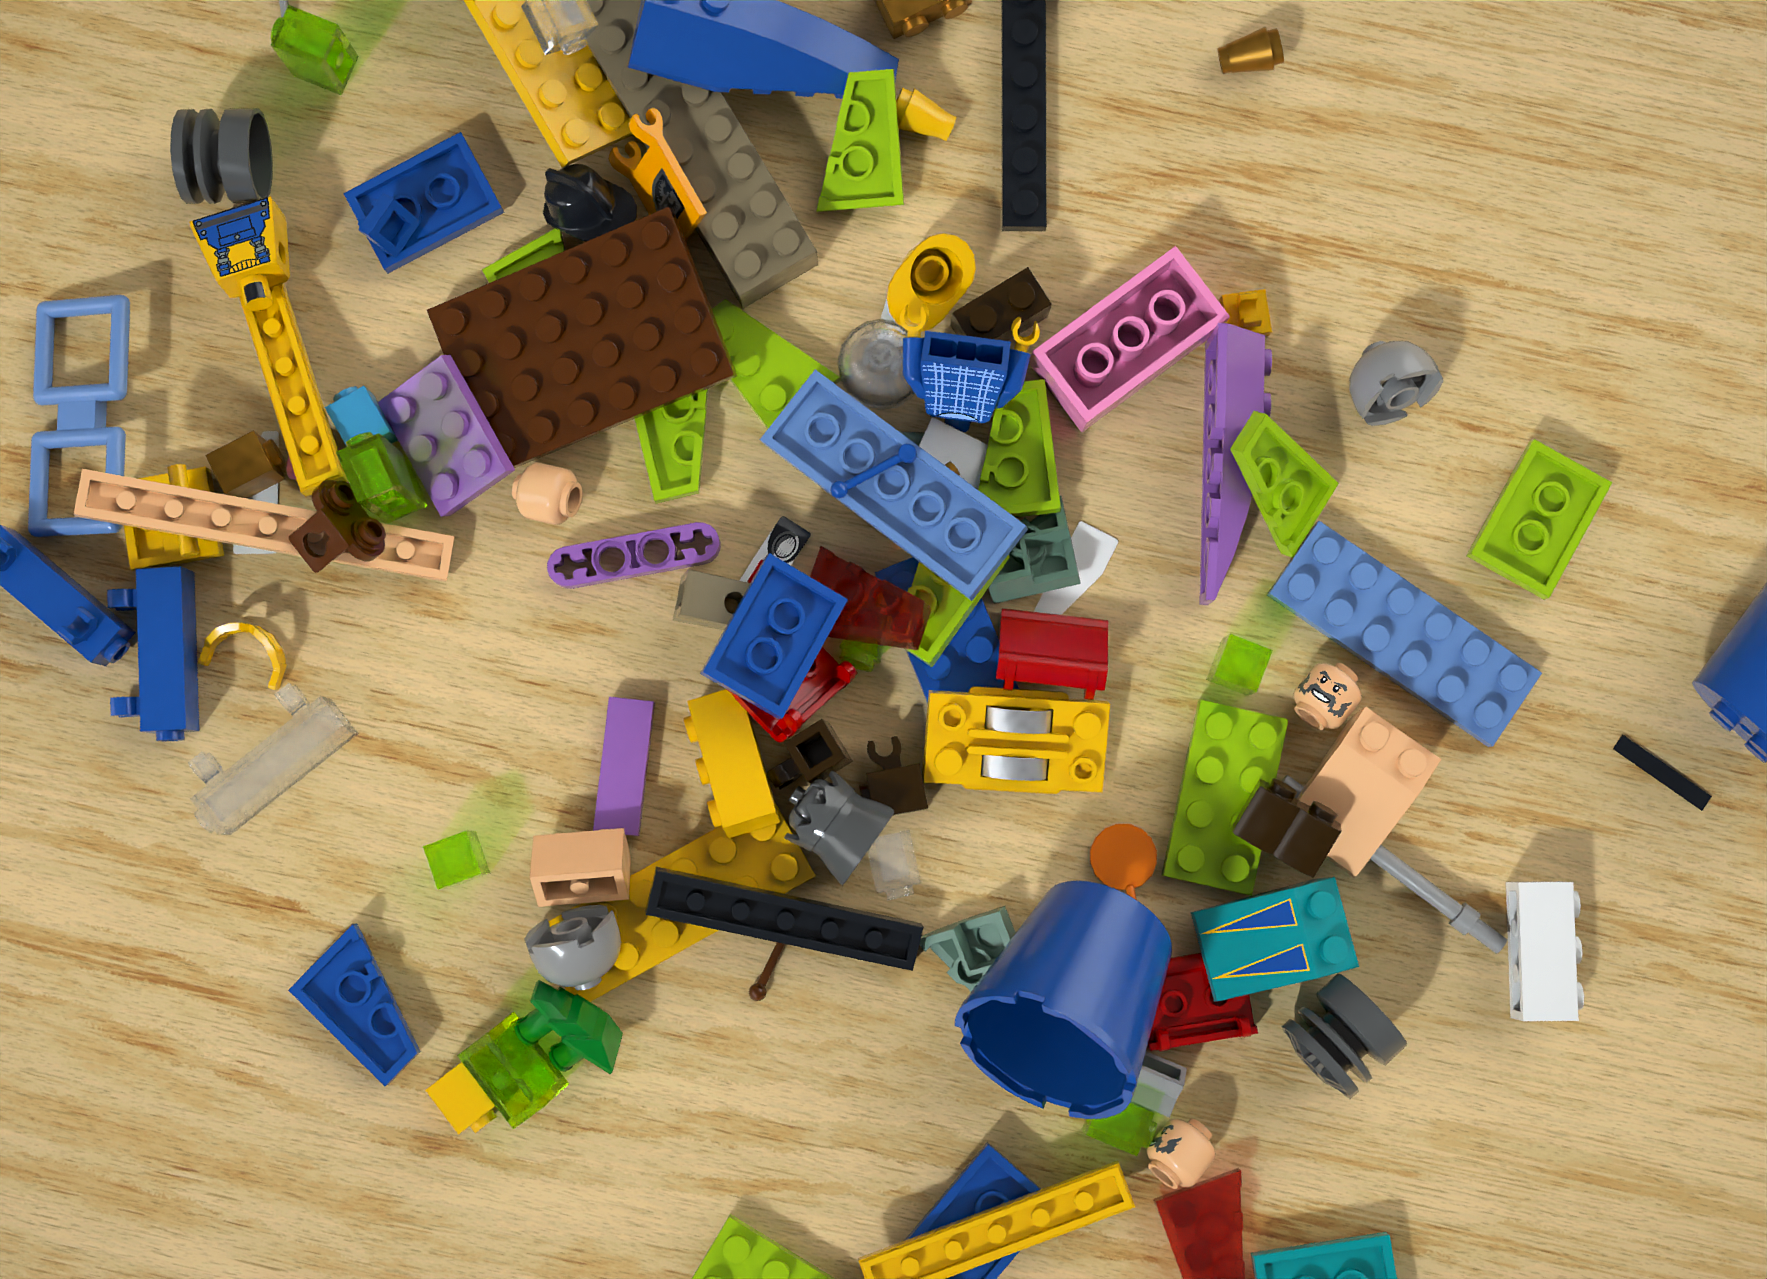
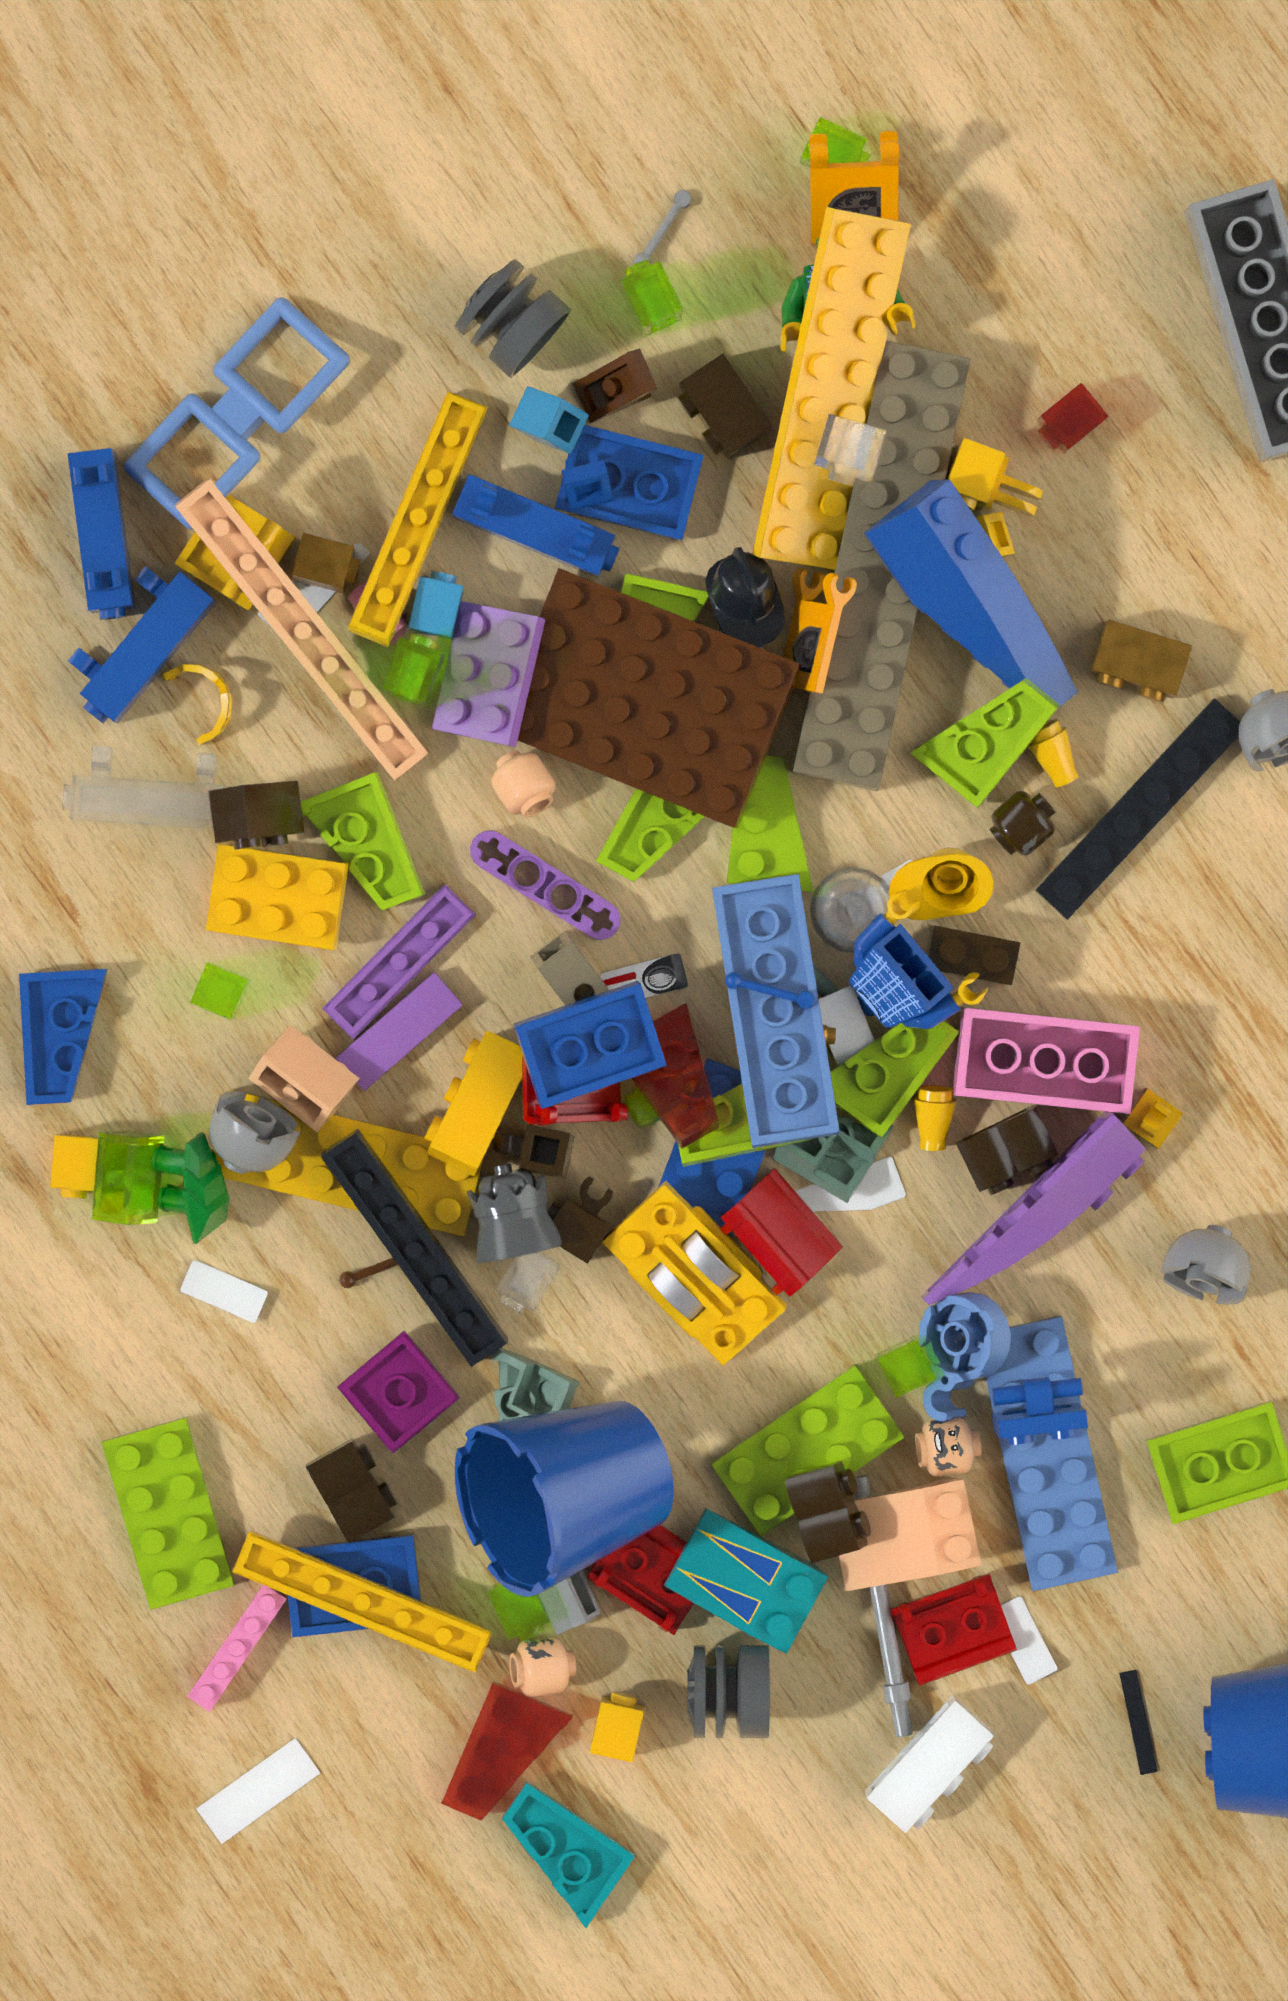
camera: 40 degrees right, 5 degrees up
(246, 250) = (466, 406): torso -> none
(319, 207) = (549, 420): none -> dark azure brick
(343, 522) = (359, 680): reddish brown bracket -> none
(349, 139) = (615, 386): none -> reddish brown slope
(358, 697) = (255, 813): none -> dark brown brick
(381, 297) = (535, 527): none -> blue brick
(436, 749) = (277, 897): none -> yellow plate
(444, 85) = (724, 407): none -> dark brown brick
(465, 642) = (366, 835): none -> lime wing
(576, 714) = (399, 961): none -> medium lavender tile
(670, 1089) = (224, 1291): none -> white sticker
(875, 1042) = (398, 1392): none -> magenta plate
(909, 1152) = (351, 1489): none -> dark brown brick
(947, 184) = (1023, 823): none -> dark brown head
(1084, 459) = (934, 1115): none -> yellow cone
(1123, 857) = (695, 1426): orange piece -> none
(1161, 434) = (1007, 1149): none -> dark brown brick
(1273, 625) = (959, 1359): none -> medium blue piece
(1282, 1146) = (617, 1727): none -> yellow brick
(1283, 480) = (1058, 1266): lime wing -> none
(1379, 598) = (1039, 1412): none -> blue plate
(1461, 831) = (954, 1629): none -> red piece
(1520, 790) = (1032, 1653): none -> white sticker

